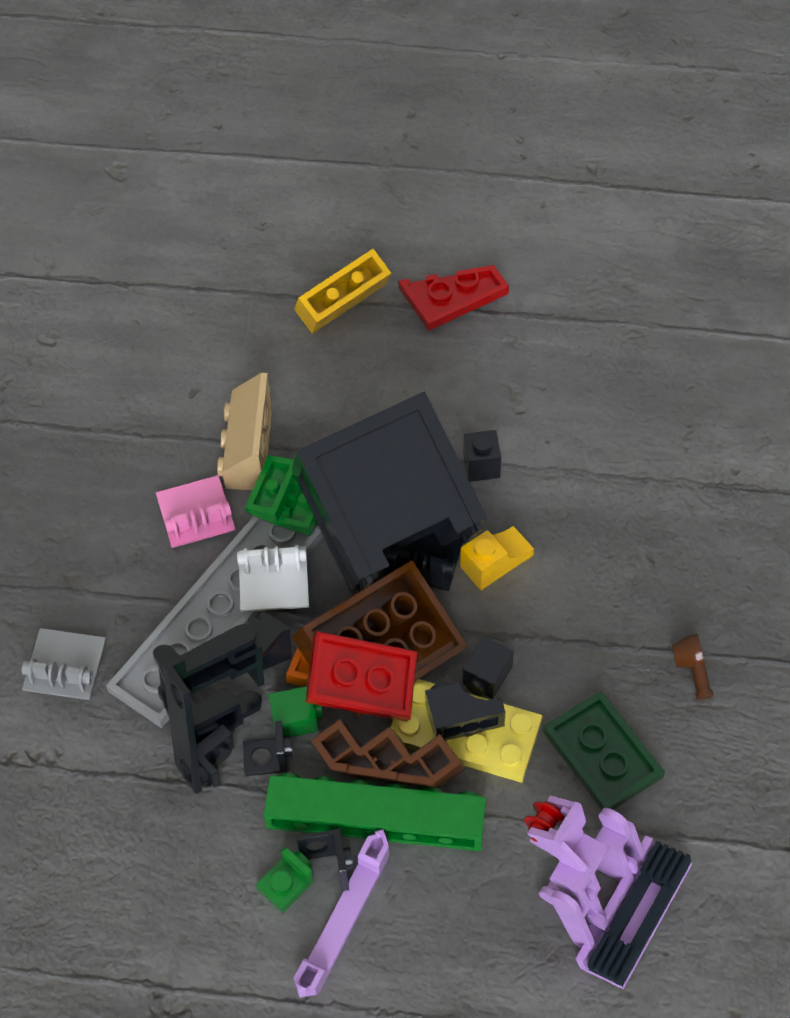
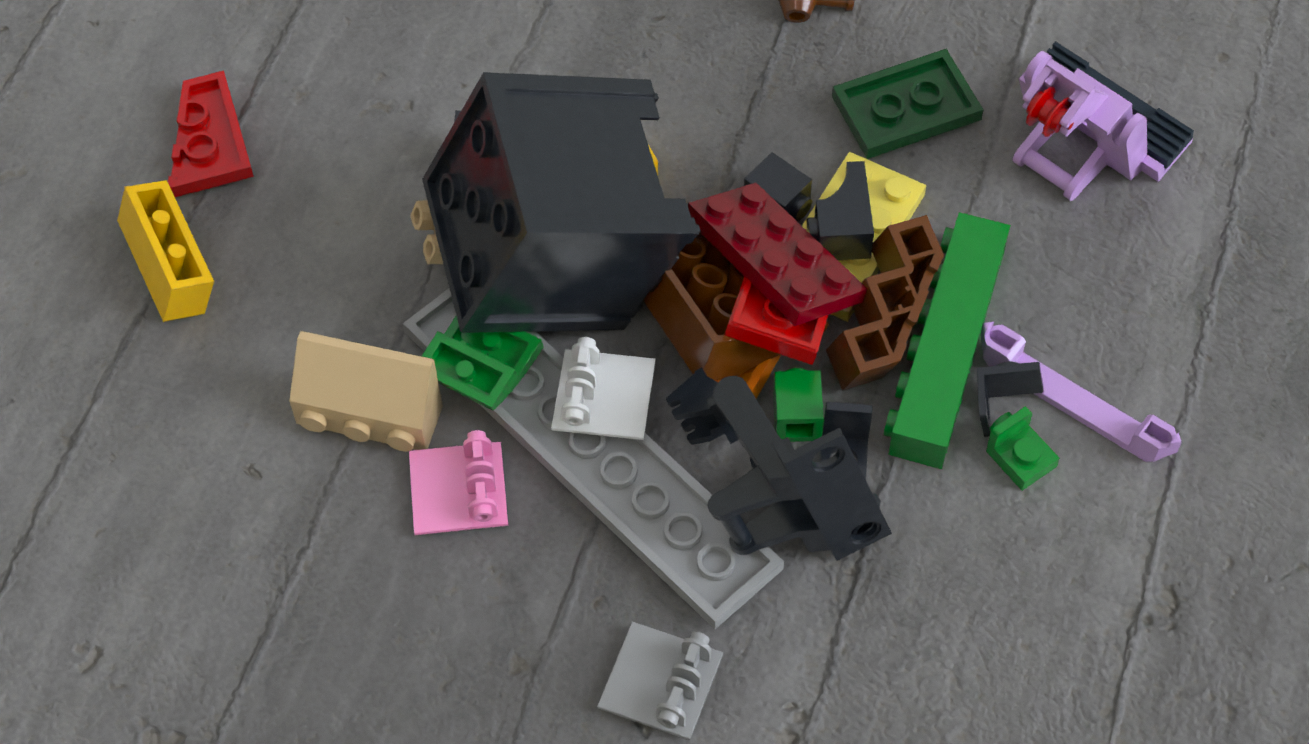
camera: 80 degrees left, 0 degrees up
(404, 663) = (776, 254): none -> dark red plate

